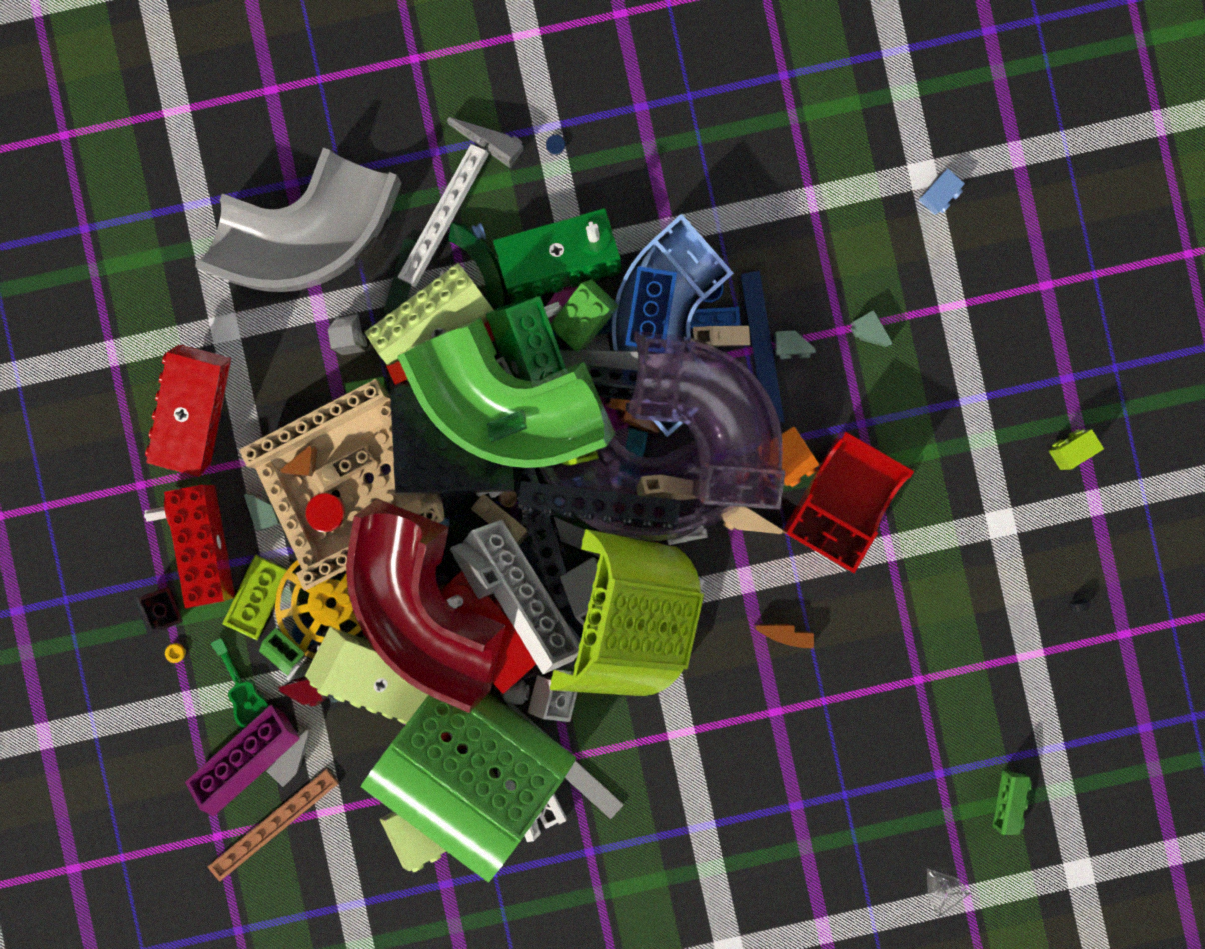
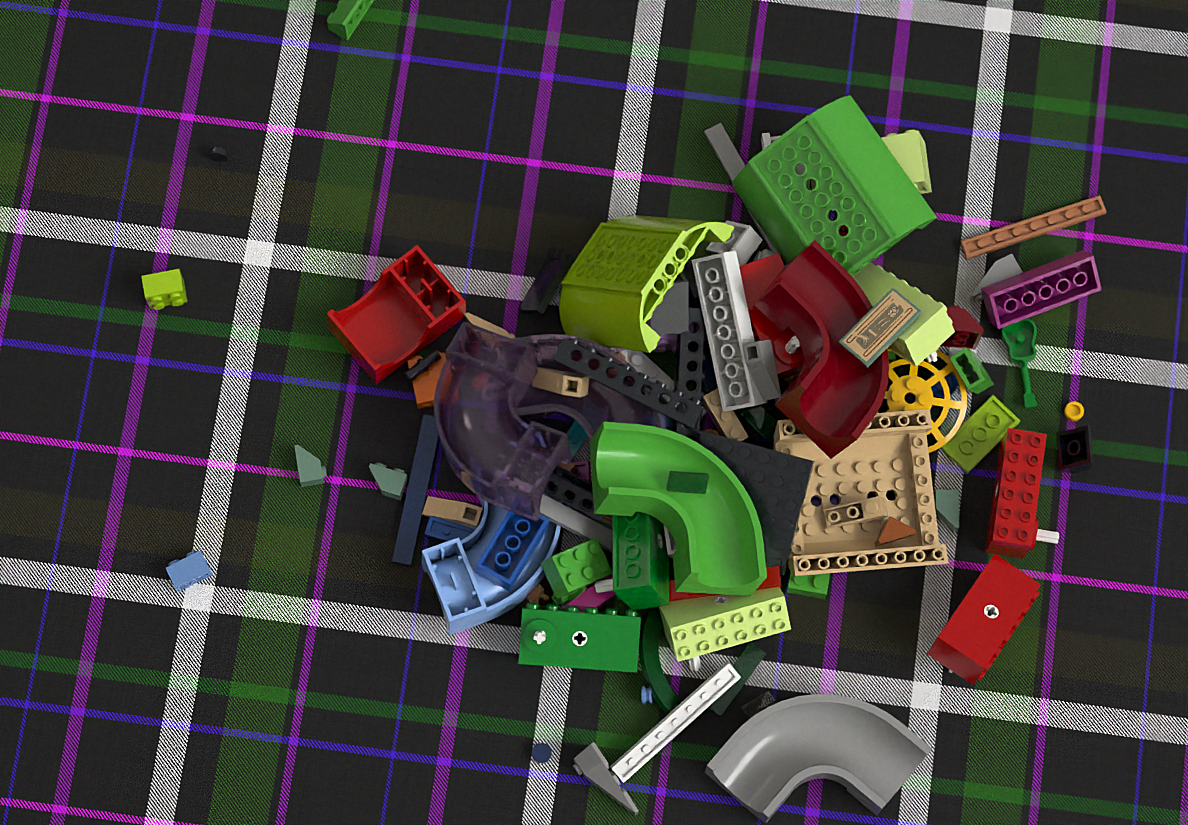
camera: 165 degrees left, 15 degrees down
(325, 512) = (886, 479): red tile -> none
(346, 335) = (808, 636): light grey wedge -> none
(374, 647) = (880, 327): none -> tile
(614, 286) = (537, 594): none -> clear orange tile
(717, 591) = (546, 282): none -> black tile
(786, 634) = (497, 224): dark orange slope -> none
(802, 463) = (423, 365): none -> black pin

